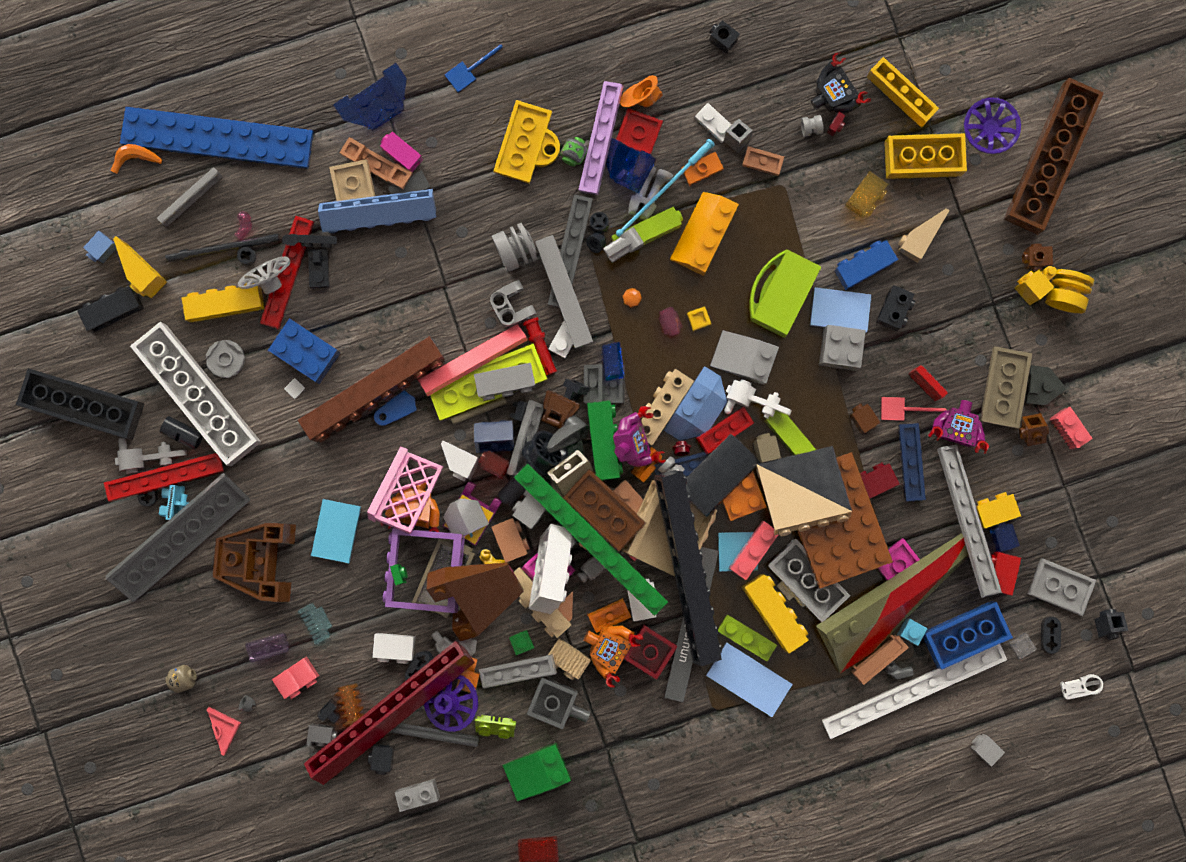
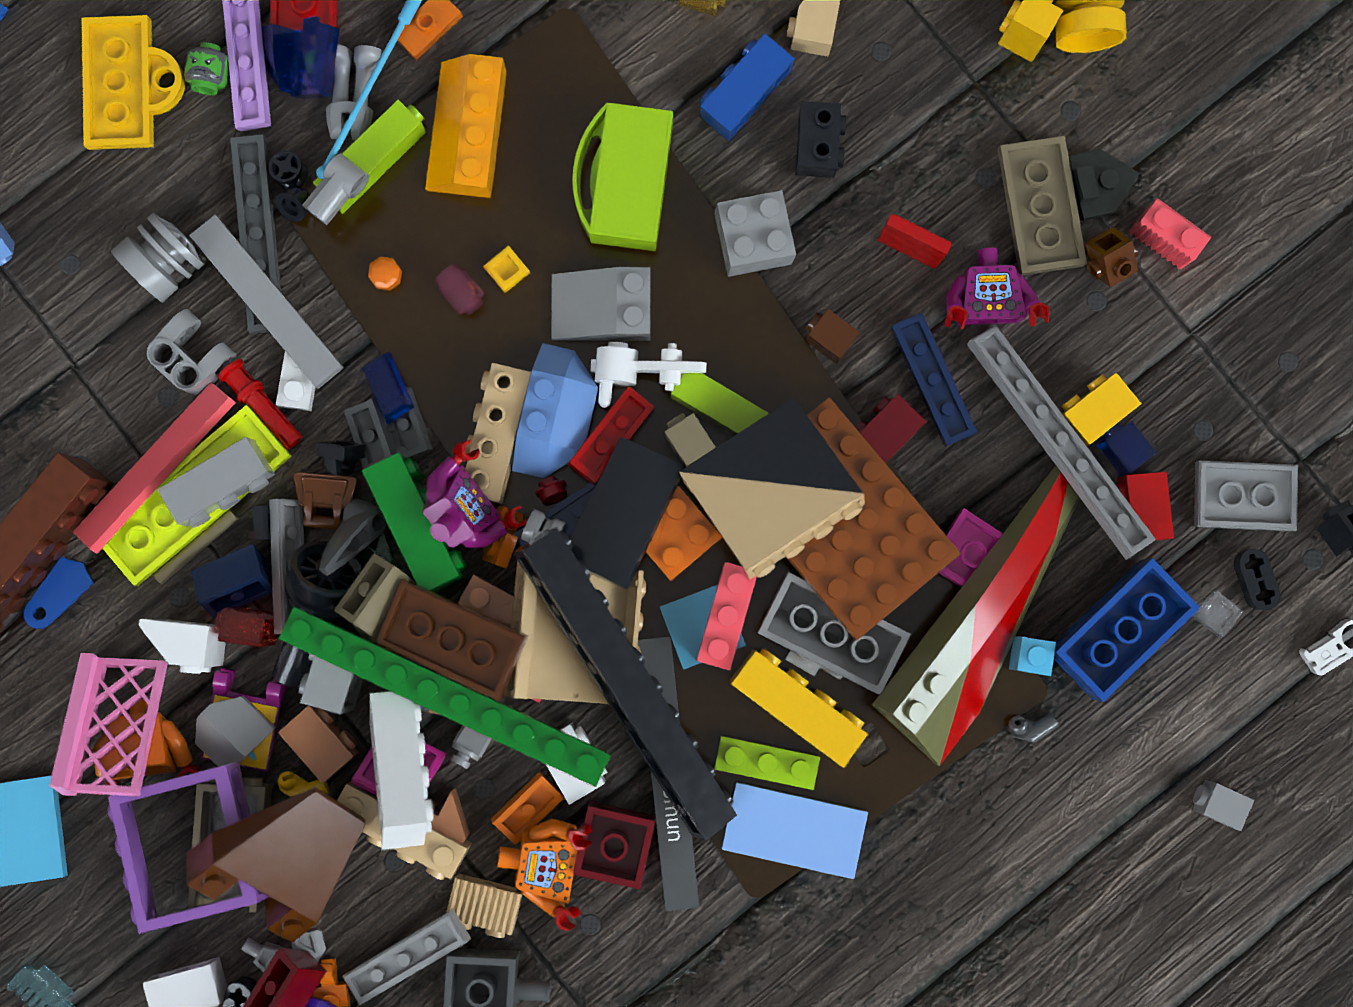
camera: 25 degrees left, 0 degrees up
(399, 574) = (139, 873): green plate -> none
(521, 642) = (398, 904): green plate -> none
(840, 309) = (729, 172): light blue tile -> none
(879, 659) = (995, 720): nougat container -> none
(894, 408) = (874, 303): coral piece -> none
(911, 691) = (1063, 757): white plate -> none

